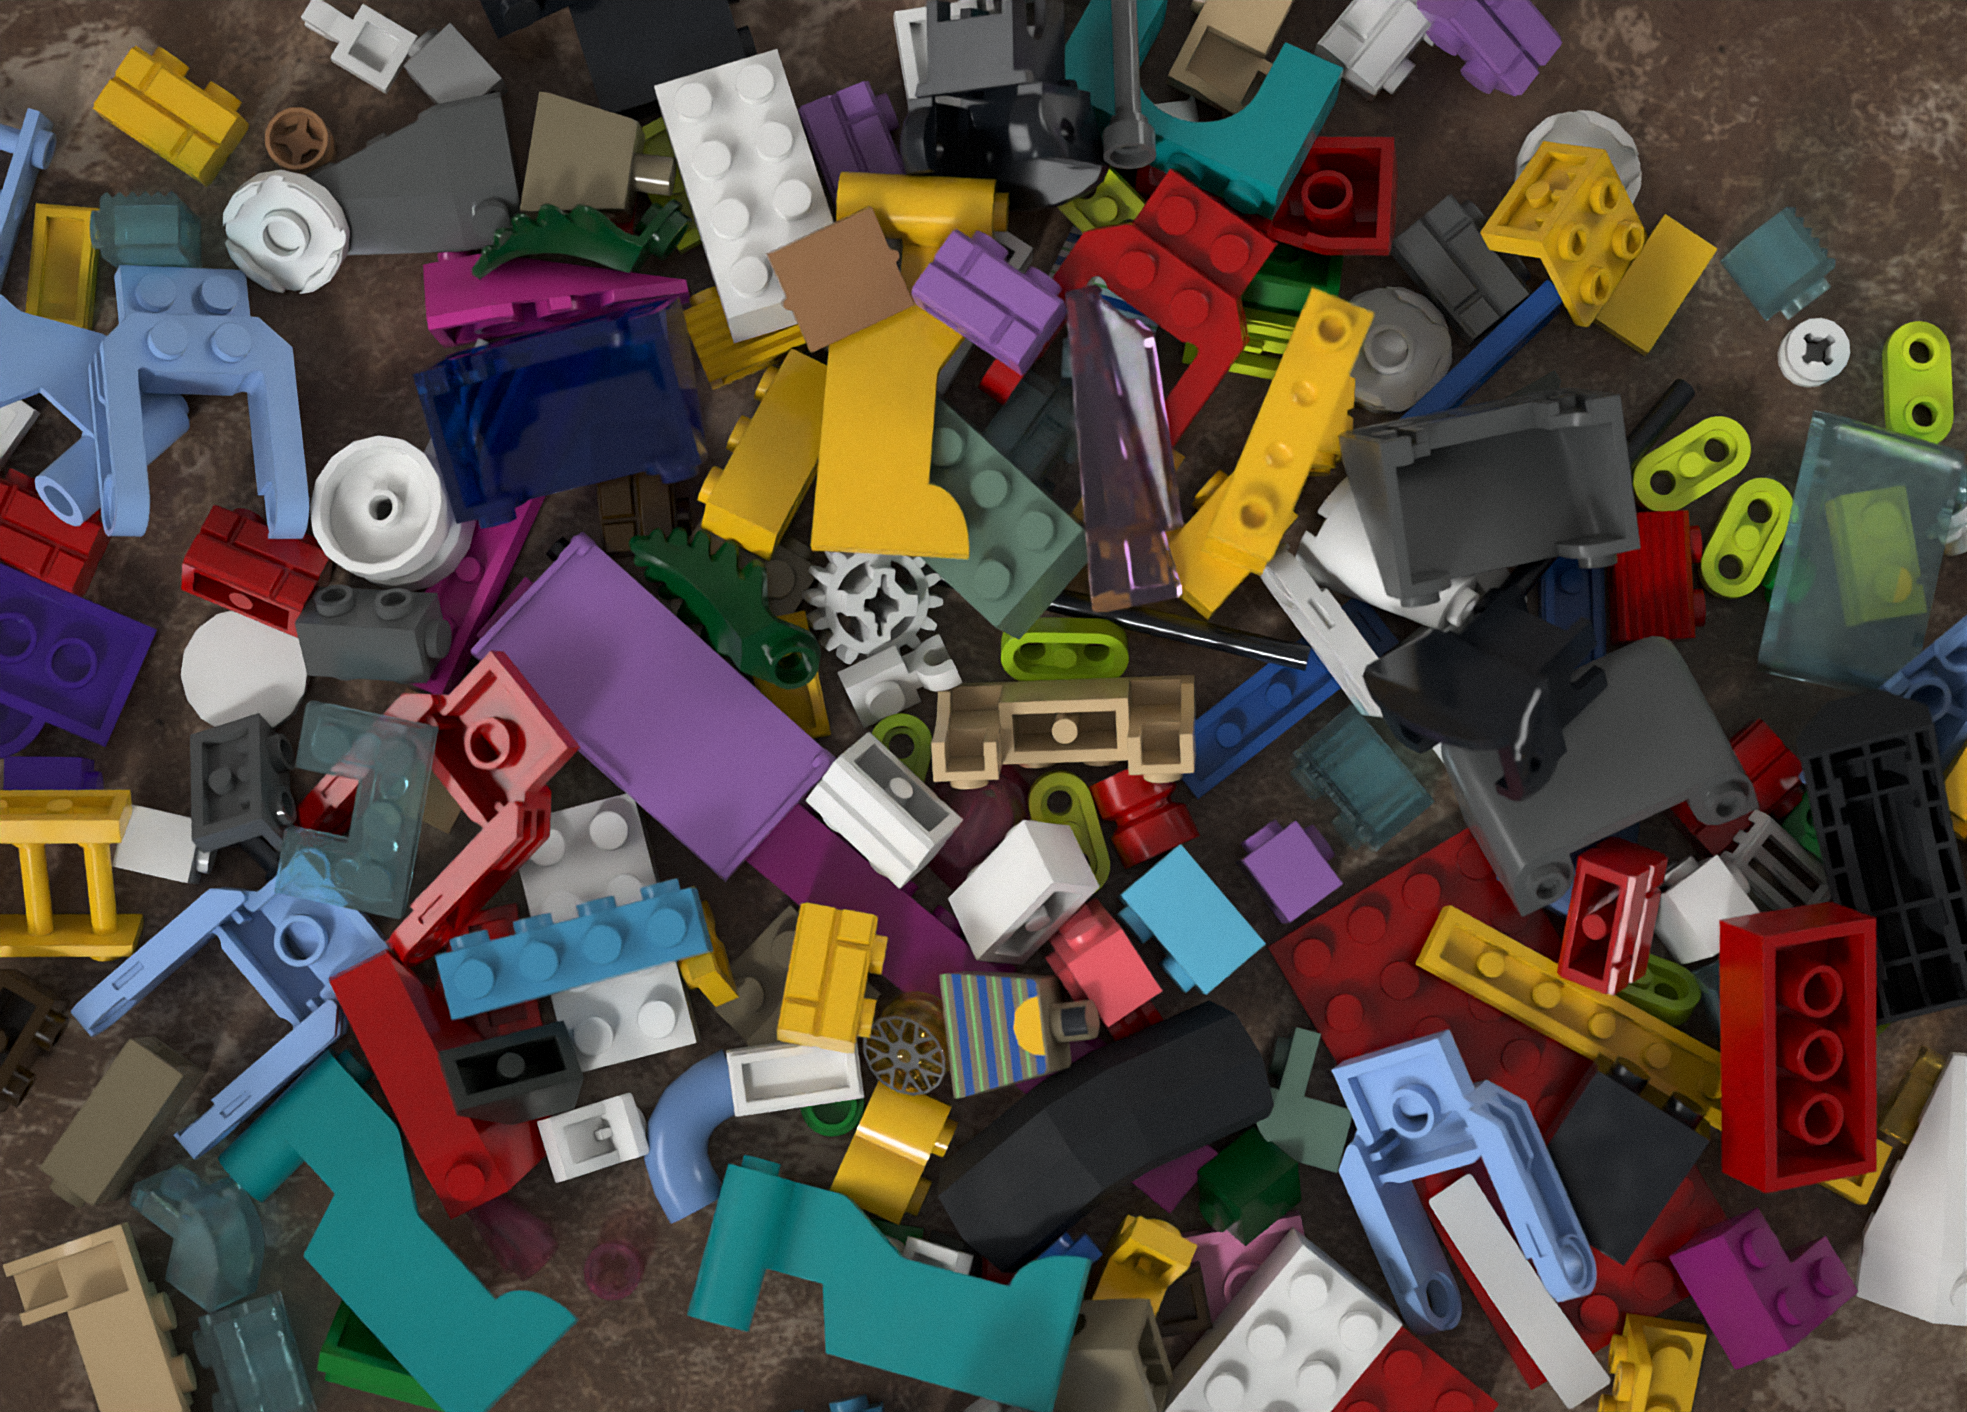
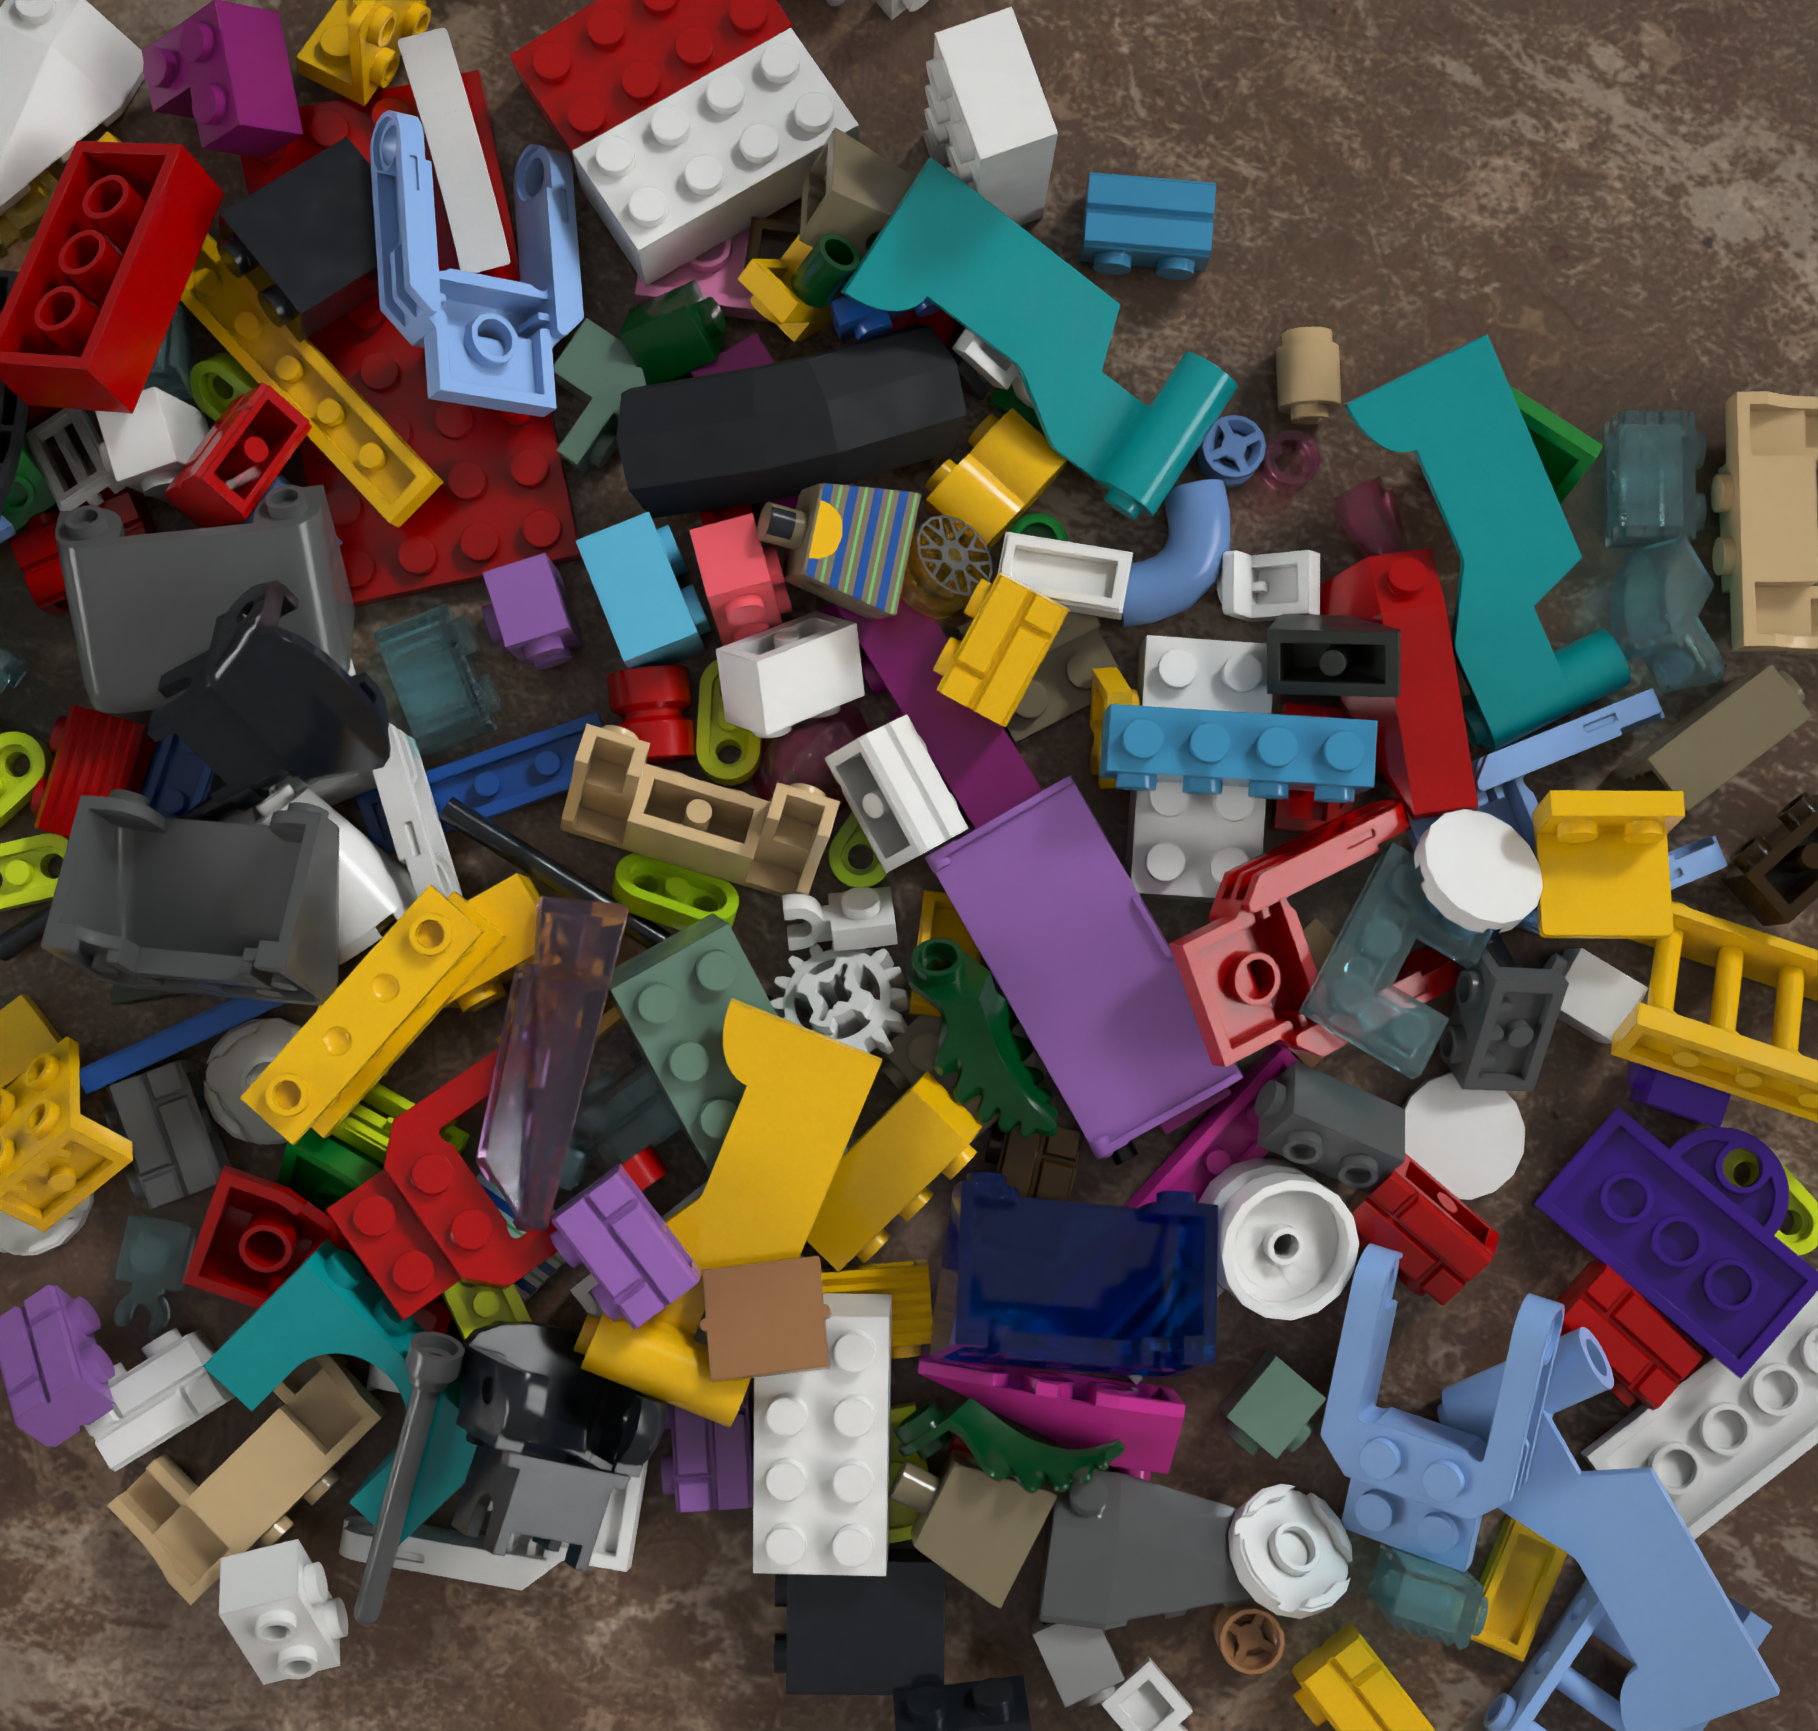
camera: 165 degrees left, 0 degrees up
(191, 962) = (1605, 863): none -> yellow bracket
(310, 917) = (1478, 871): none -> white tile
(345, 358) = (1271, 1407): none -> sand green brick
(622, 1357) = (1308, 375): none -> tan brick
(666, 1265) = (1241, 443): none -> medium blue wheel
(1115, 1279) = (825, 270): none -> dark green hinge
(1436, 149) = (153, 1260): none -> clear light blue plate

